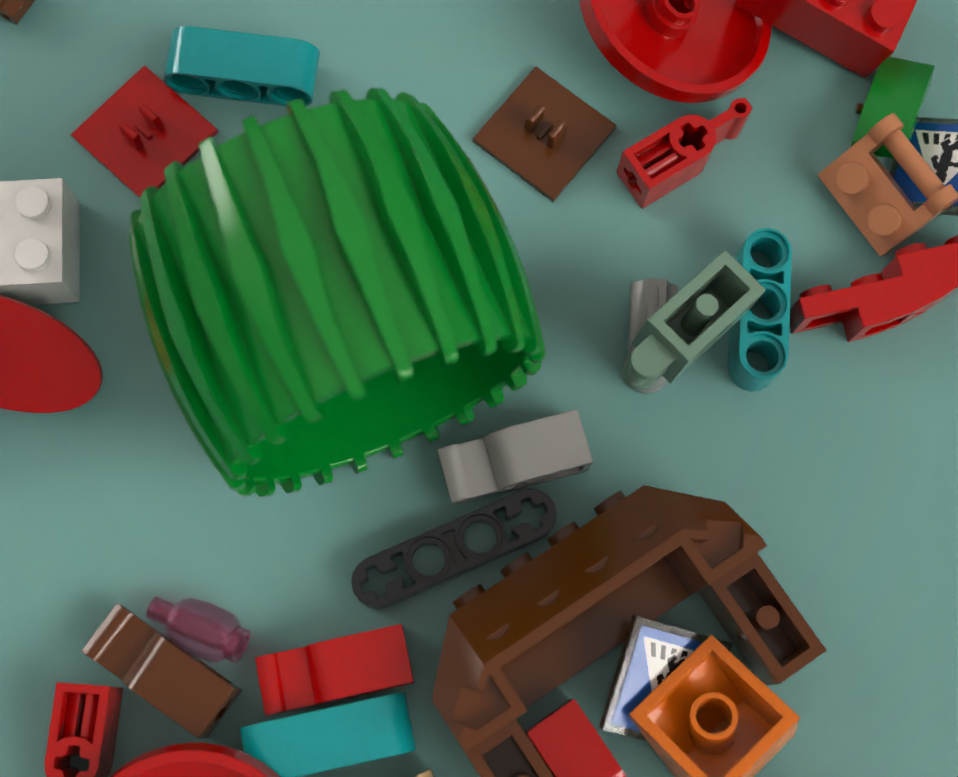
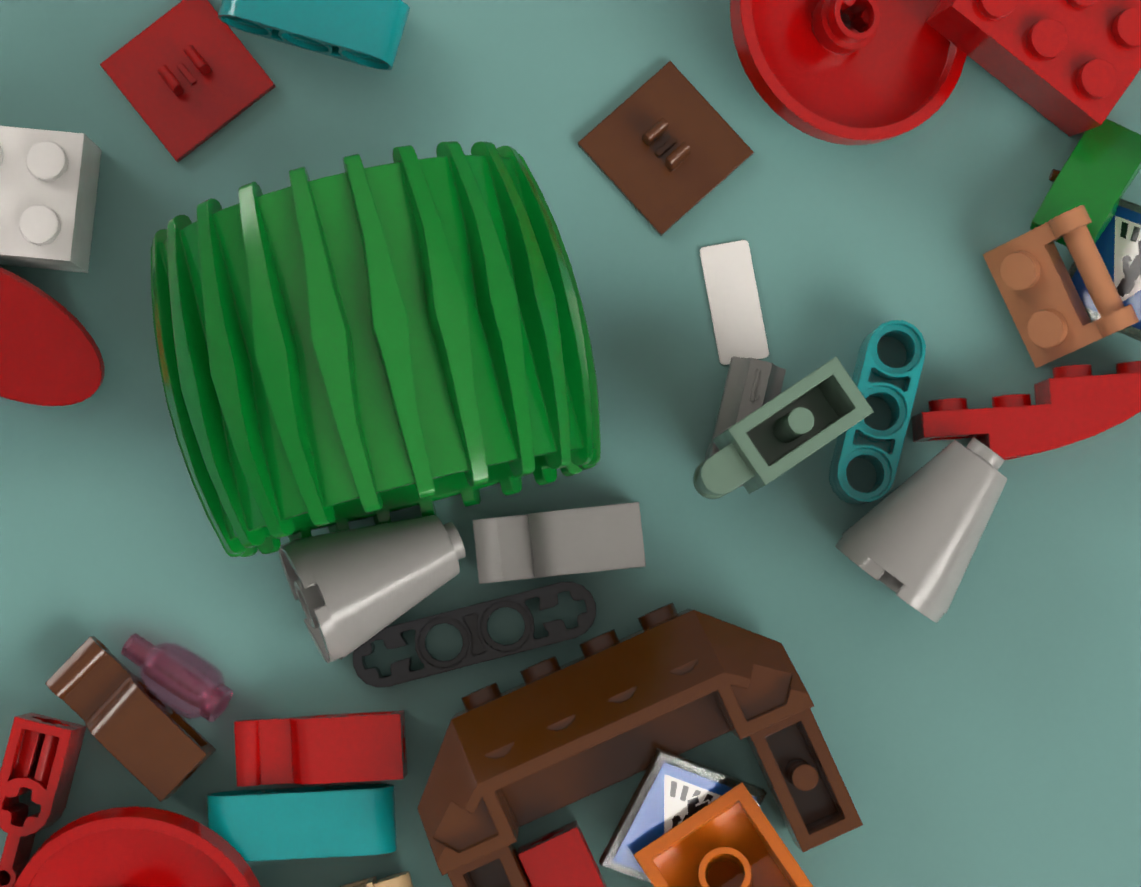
camera: 10 degrees right, 10 degrees up
(353, 511) = (368, 577): none -> light grey cone
(621, 242) = (734, 301): none -> white sticker
(677, 152) = (814, 218): red piece -> none
(825, 391) = (929, 527): none -> light grey cone

